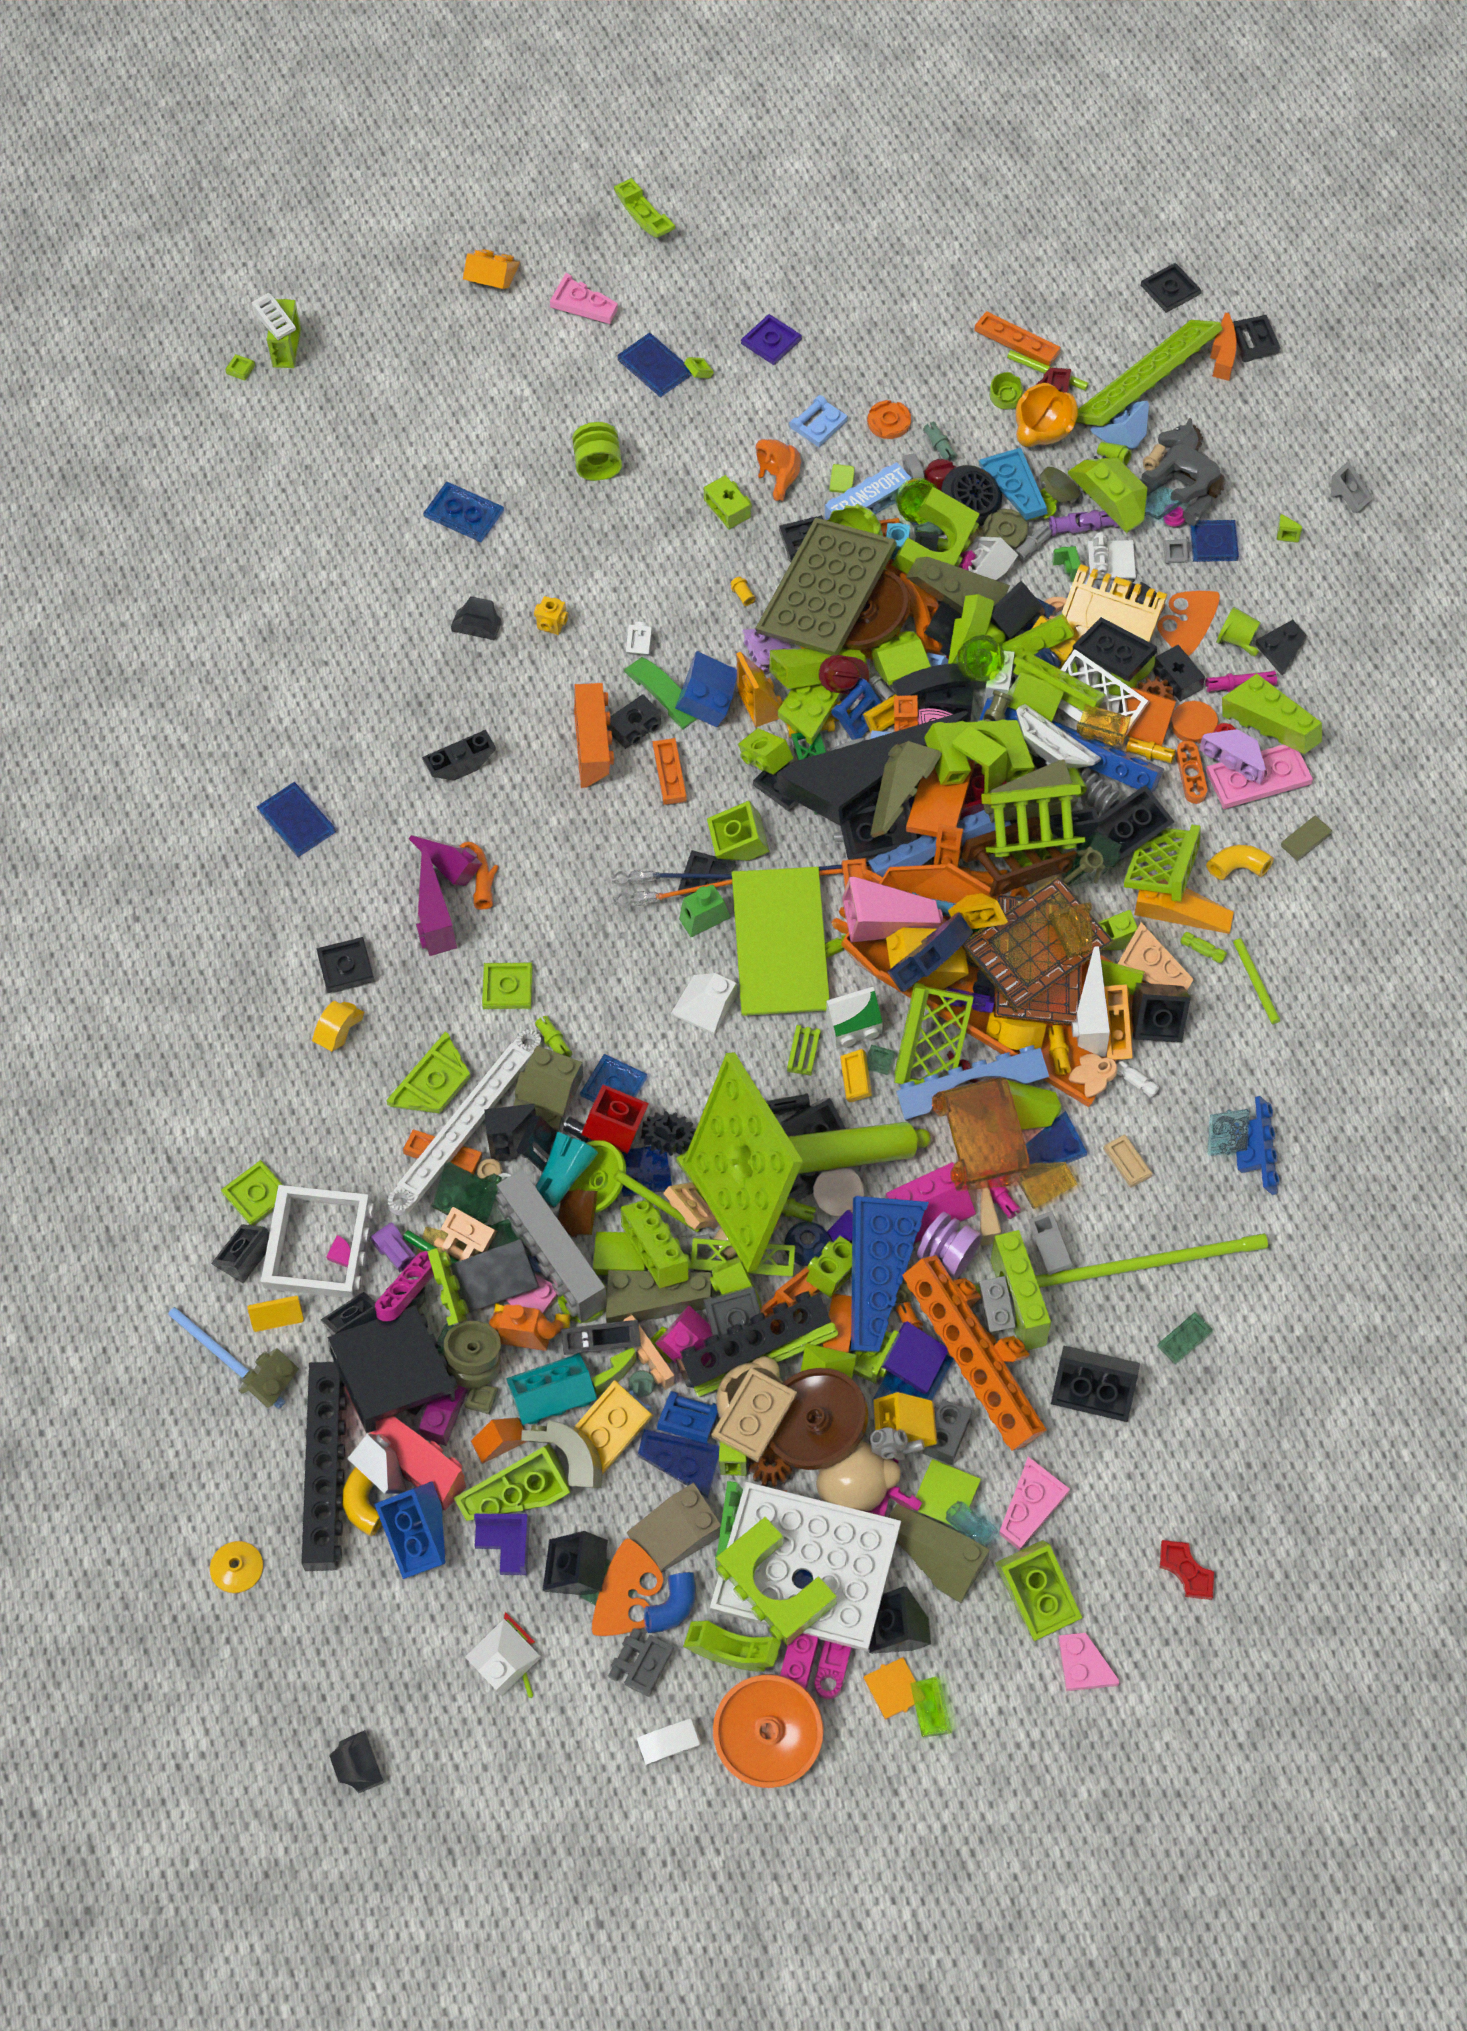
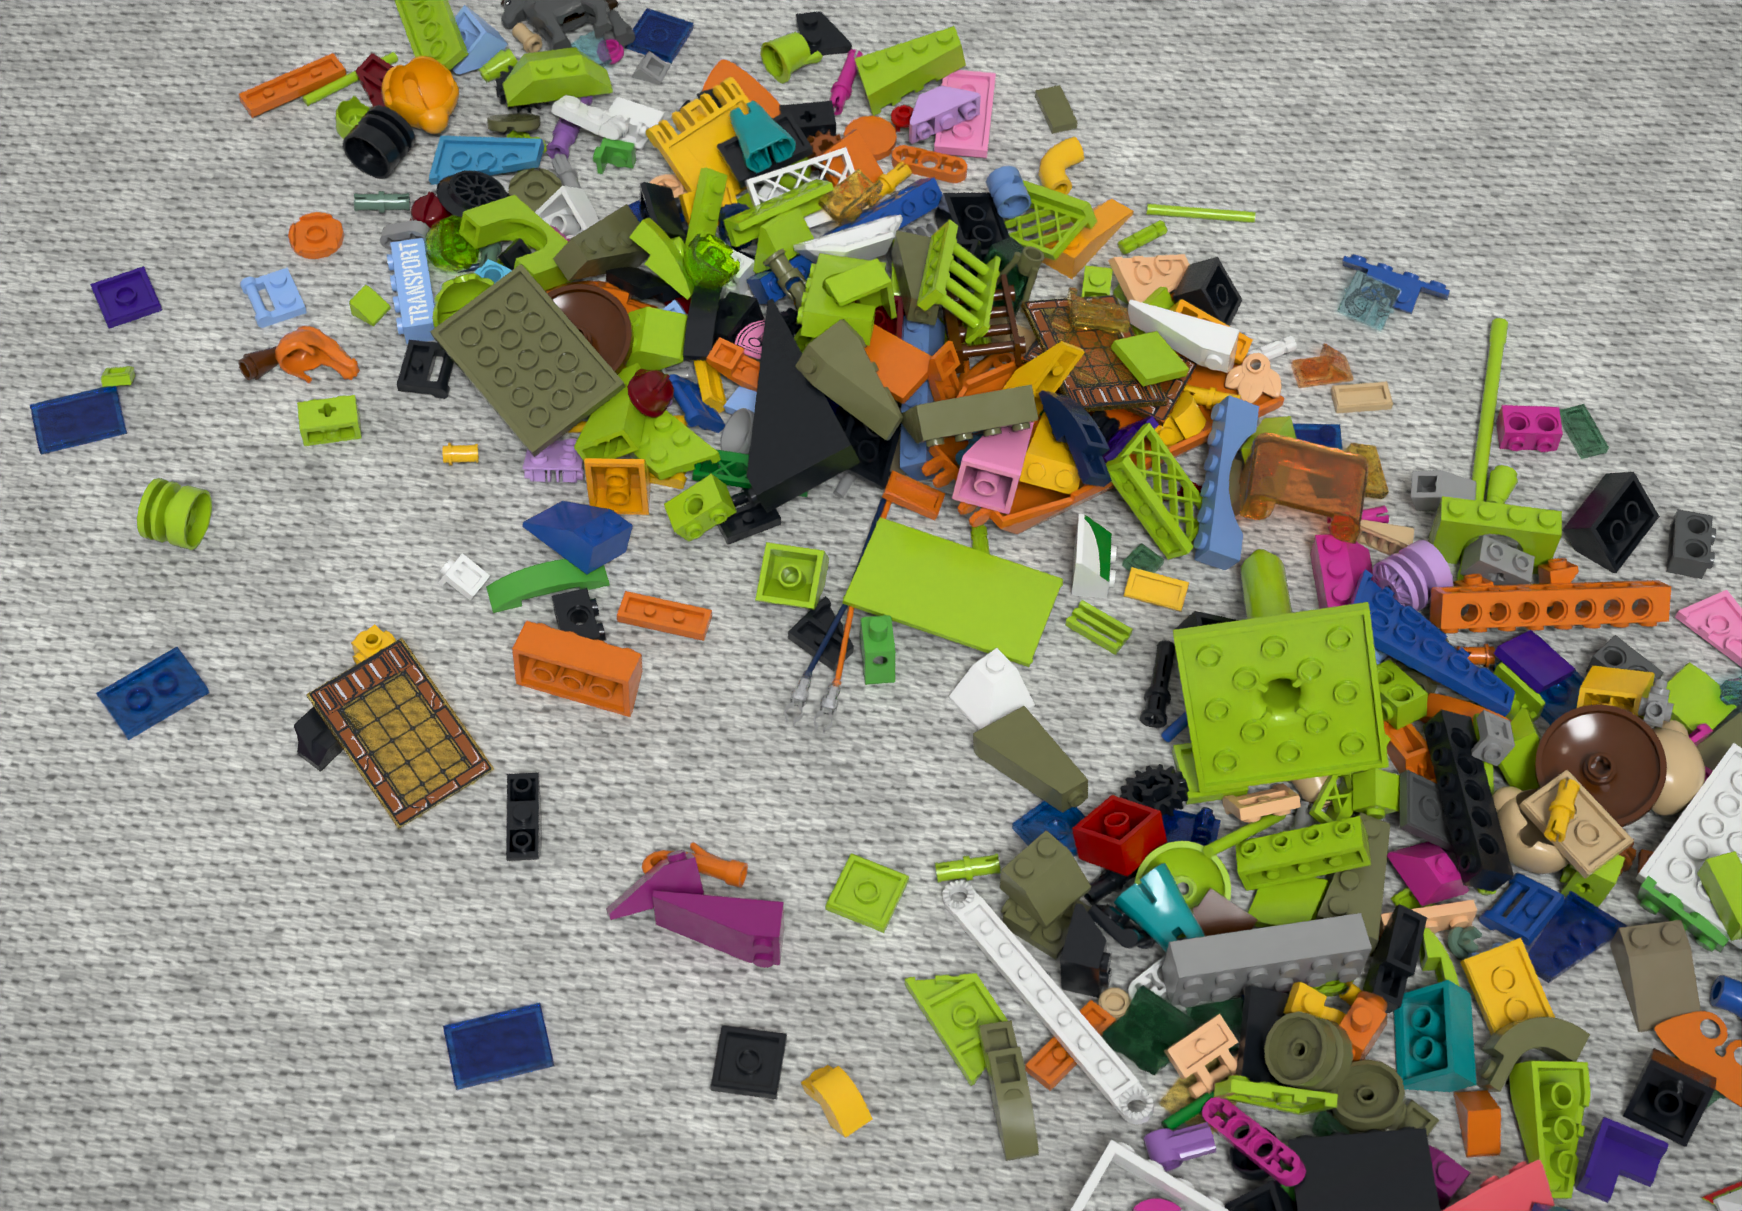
camera: 70 degrees left, 5 degrees down
(384, 1122) = (1009, 1090): none -> olive slope
(481, 1292) = (1308, 1052): none -> olive wheel
(494, 658) = (400, 733): none -> piece
(529, 1287) = (1310, 1001): none -> yellow plate
(659, 1044) = (1031, 758): none -> olive slope
(750, 437) = (258, 363): none -> reddish brown cone
(750, 1394) = (1562, 810): none -> yellow pin
(810, 1337) = (1495, 738): none -> light grey bracket
(901, 870) = (971, 415): none -> olive slope
(985, 412) = (379, 142): none -> black wheel
(1052, 983) = (1149, 358): none -> lime tile
(1086, 527) = (590, 118): none -> white hinge
(1087, 1289) = (1501, 484): none -> lime cone
(1101, 1443) = (1690, 544): none -> dark grey brick
(1114, 637) = (758, 133): none -> teal piece
(1140, 1123) = (1322, 370): none -> clear orange slope
(1165, 1291) = (1529, 428): none -> dark pink brick
(1171, 828) = (1008, 192): none -> medium blue wheel

